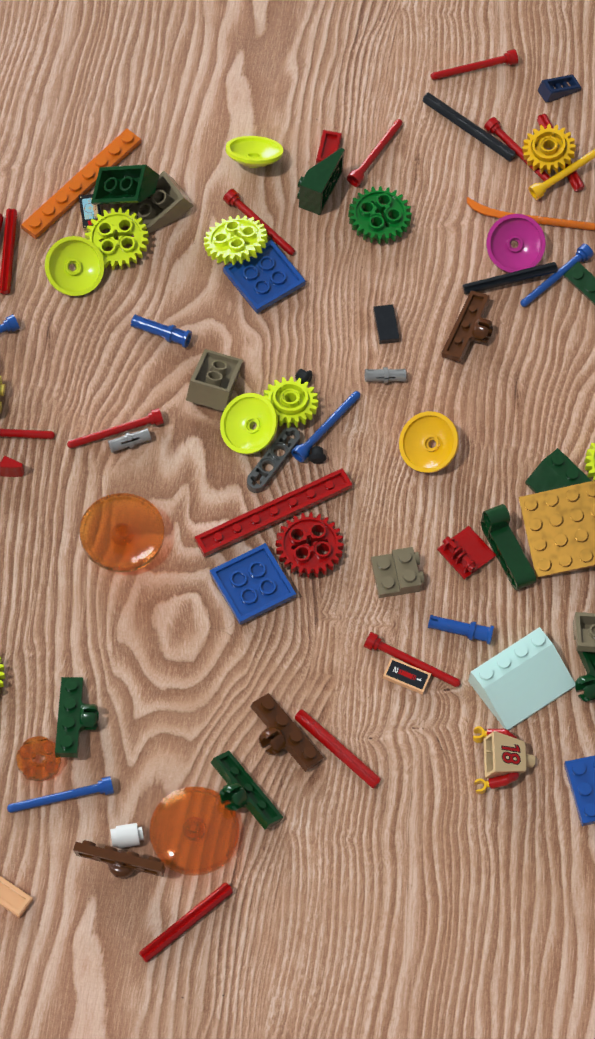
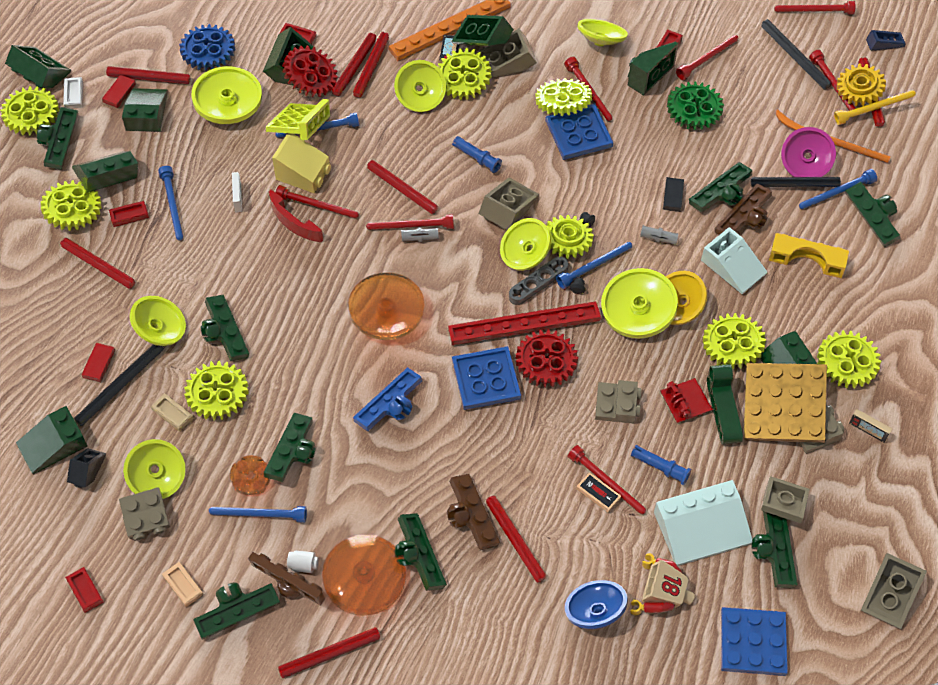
camera: 20 degrees right, 5 degrees down
(73, 904) = (235, 608): none -> dark green plate
(91, 389) = (402, 186): none -> red axle
(160, 636) = (390, 401): none -> blue plate
(388, 459) = (639, 303): none -> neon yellow dish
(436, 305) = (722, 188): none -> dark green plate
(441, 795) = (596, 604): none -> blue dish
(472, 385) = (733, 260): none -> light aqua slope
(497, 474) = (733, 340): none -> neon yellow gear
(570, 357) = (830, 258): none -> yellow arch

